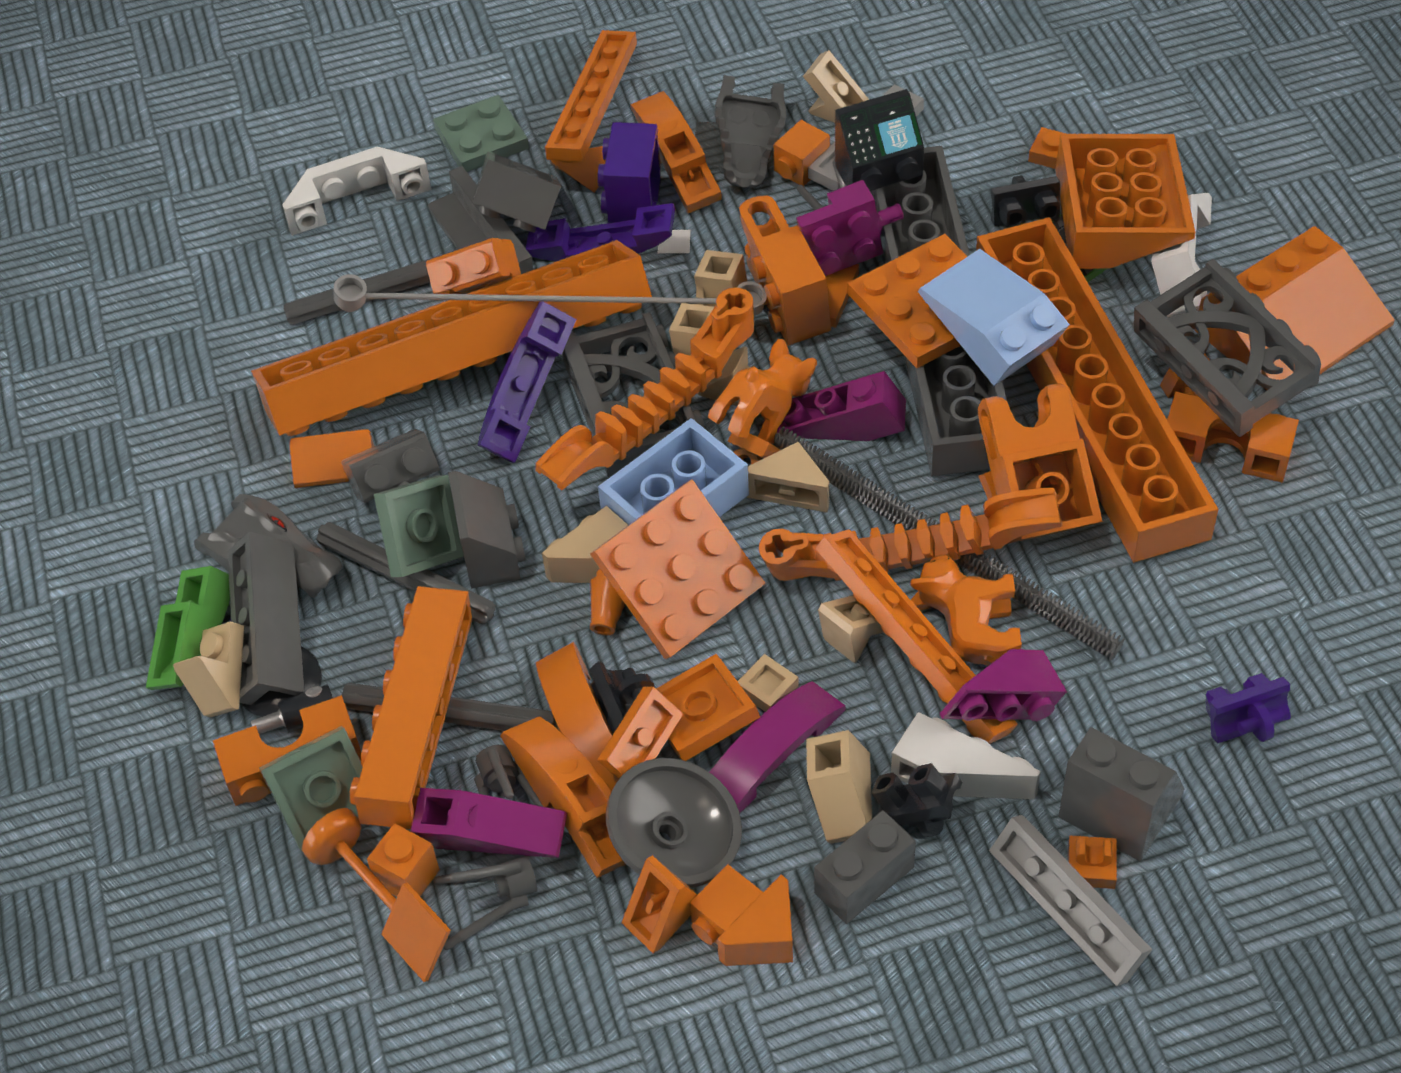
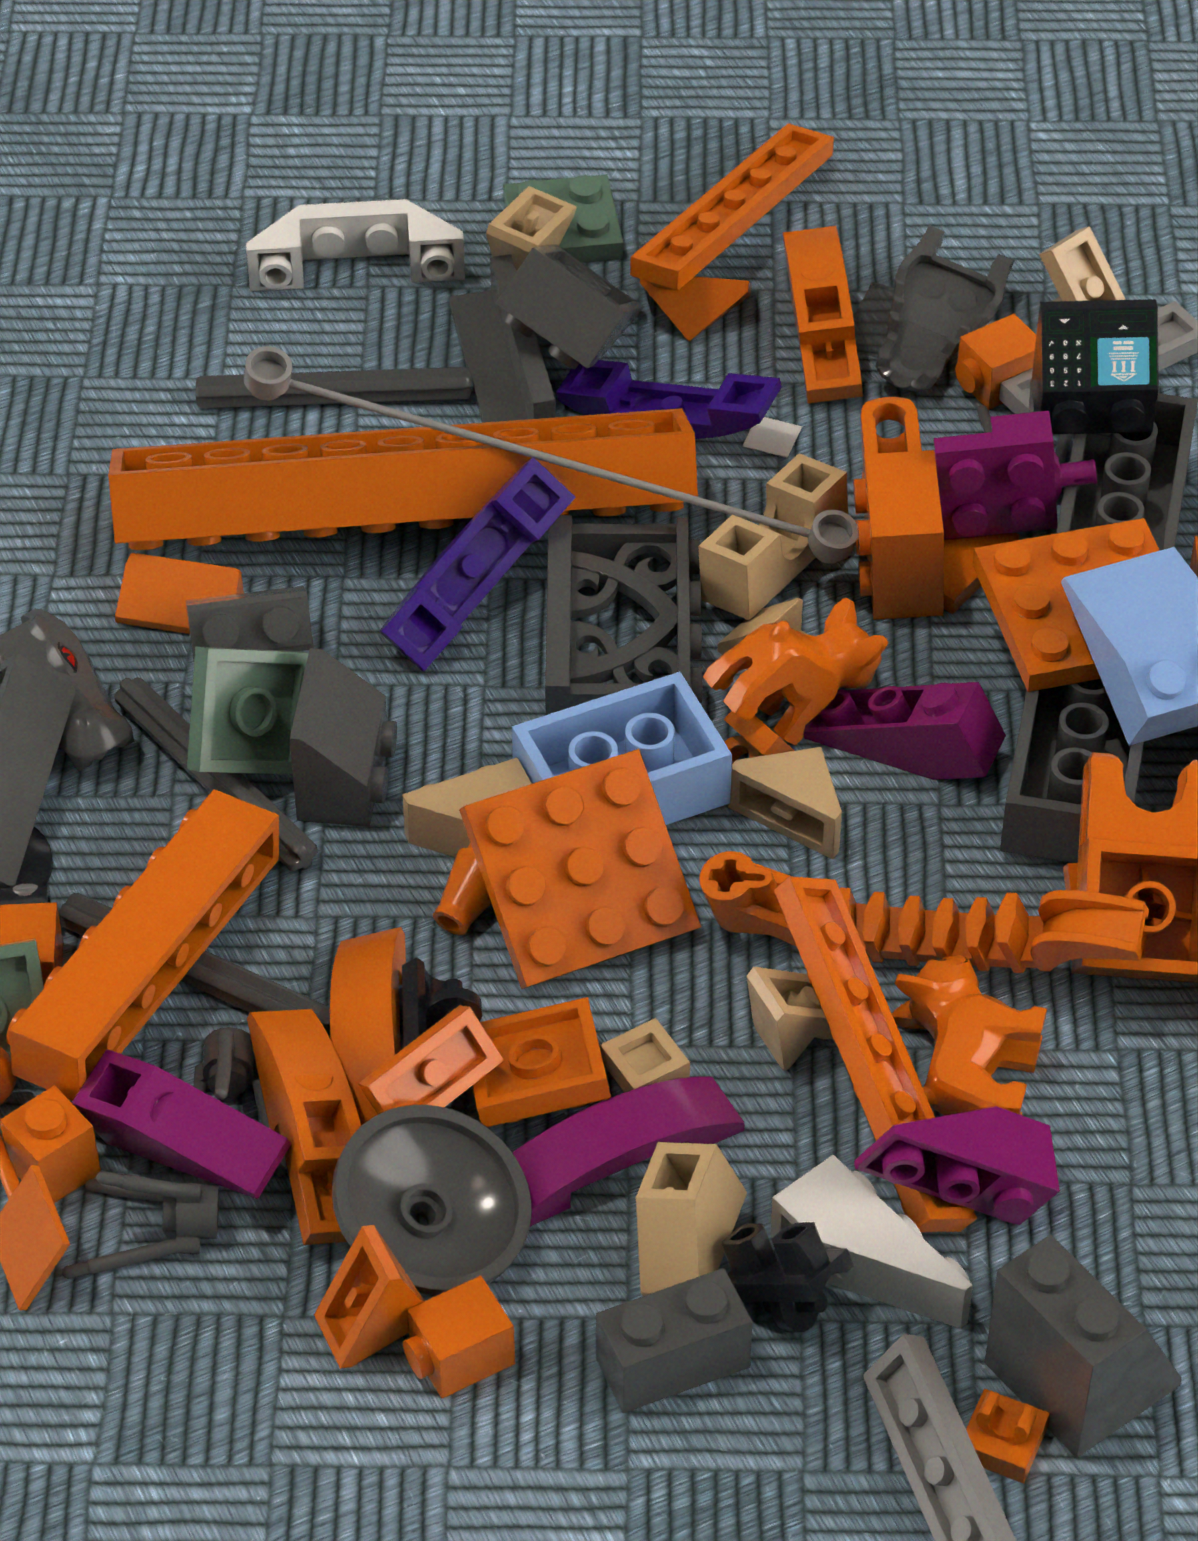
camera: 15 degrees right, 5 degrees down
(467, 145) = (529, 222): none -> tan slope
(473, 267) = (469, 391): orange brick -> none
(617, 433) = (501, 668): orange piece -> none
(630, 170) = (741, 319): dark purple piece -> none
(761, 931) = (496, 1380): orange slope -> none
(977, 564) = (1017, 989): dark grey axle -> none

